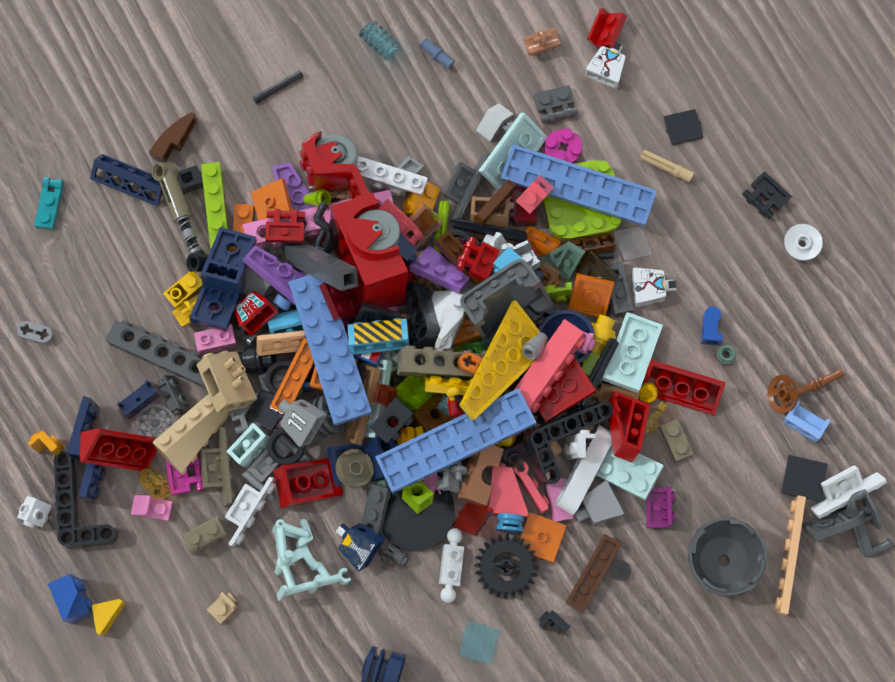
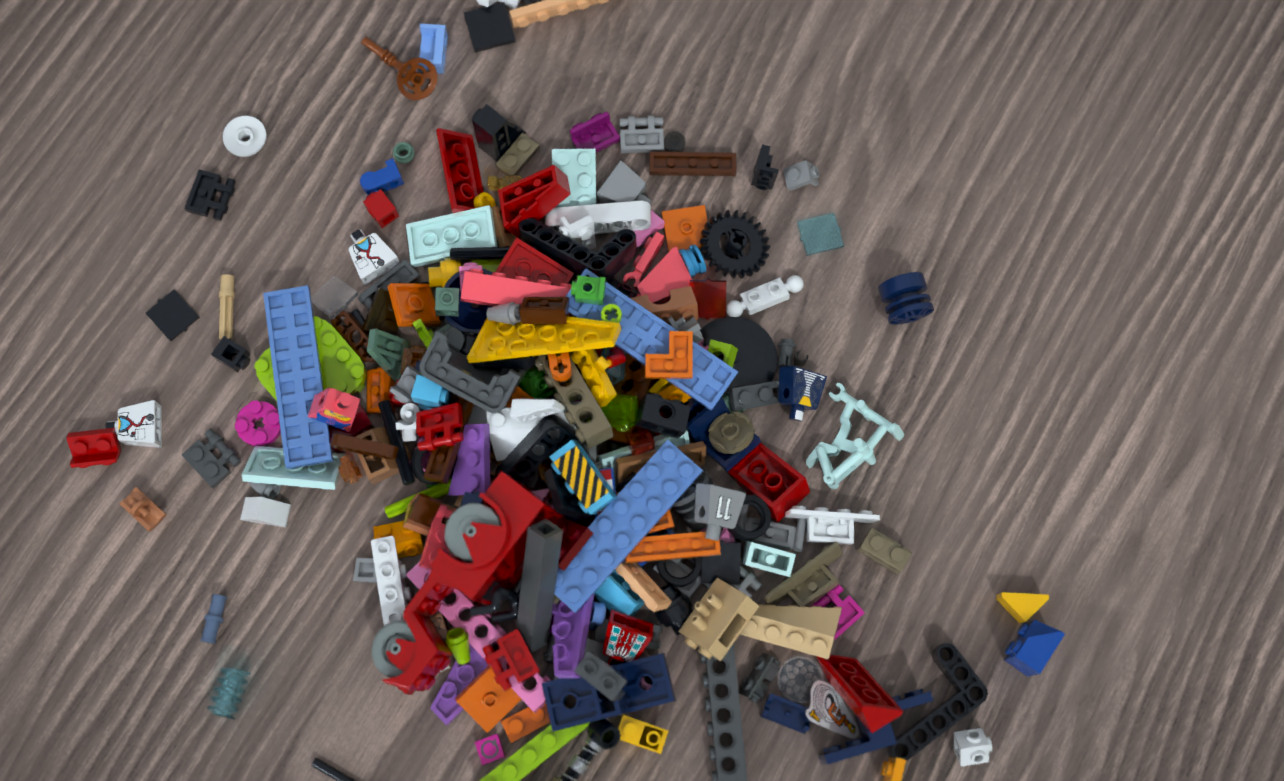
camera: 125 degrees left, 0 degrees up
(123, 421) = (830, 711): none -> sticker
(151, 486) = (864, 637): clear yellow beam -> none
(151, 507) = (889, 627): bright pink slope -> none
(184, 311) = (663, 716): yellow hips -> none
(215, 340) = (679, 667): bright pink brick -> none
(223, 607) = (940, 492): tan bracket -> none
(229, 268) = (601, 676): none -> dark grey bracket
(239, 188) = (489, 749): none -> dark pink tile
(423, 447) = (677, 363): none -> orange plate
(462, 185) = (357, 501): dark grey bracket -> none
(487, 187) = (348, 471): none -> clear orange plate
(493, 420) = (608, 308): none -> lime bush
(512, 419) = (595, 296): none -> bright green brick
(520, 374) = (544, 310): none -> reddish brown slope
(535, 655) = (801, 175): none -> light grey bracket
(572, 312) = (447, 301): none -> sand green brick
(628, 146) = (226, 350): none -> black brick
(635, 545) = (641, 139): none -> light grey plate
(686, 312) = (380, 208): none -> red brick
(701, 430) = (494, 131): none -> black wedge
(741, 546) = (606, 32): dark grey piece -> none

